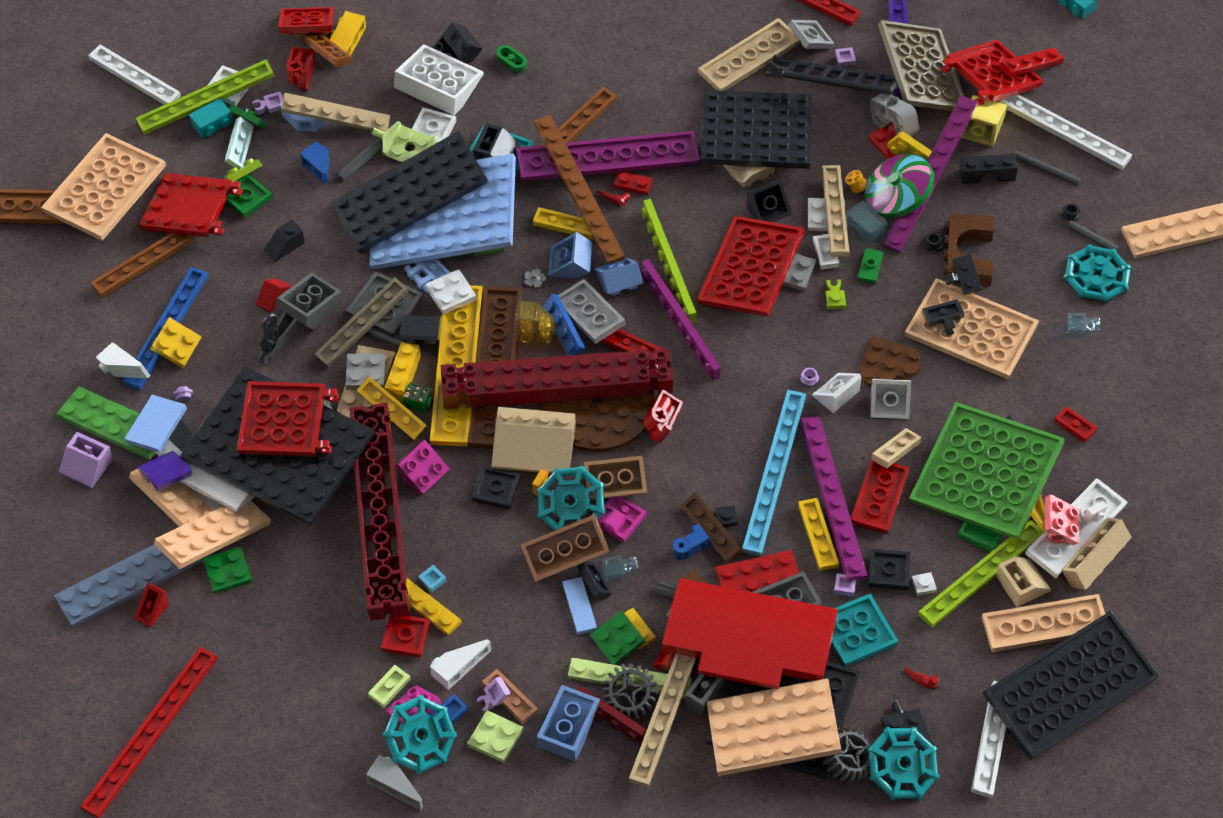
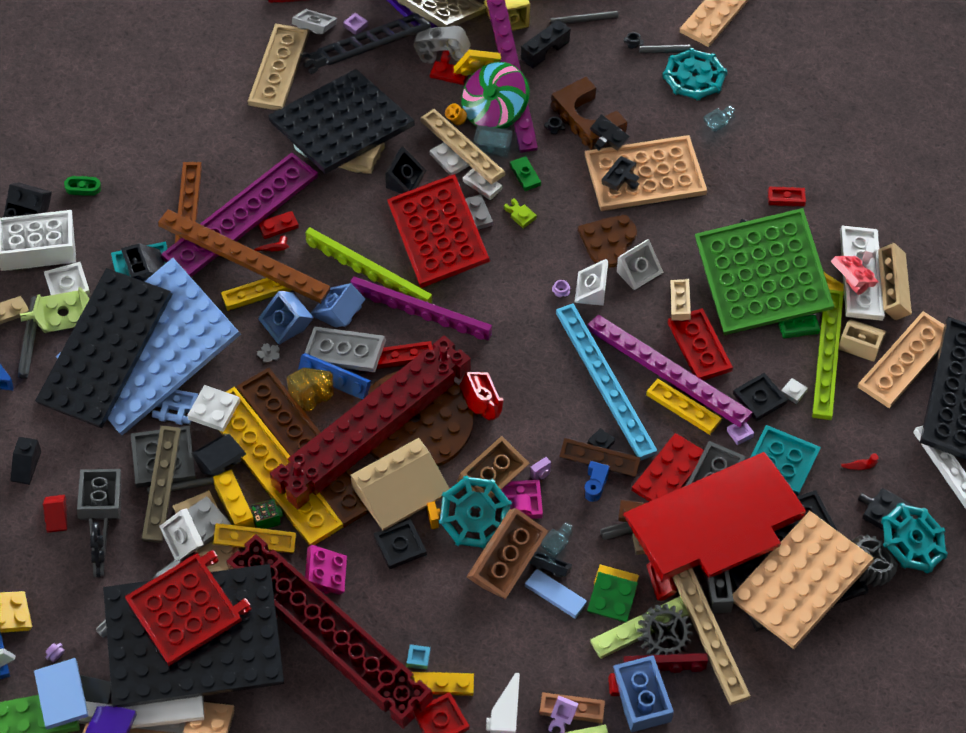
camera: 40 degrees left, 0 degrees up
(340, 368) = (181, 535): none -> white plate
(655, 504) = (540, 469): none -> lavender plate

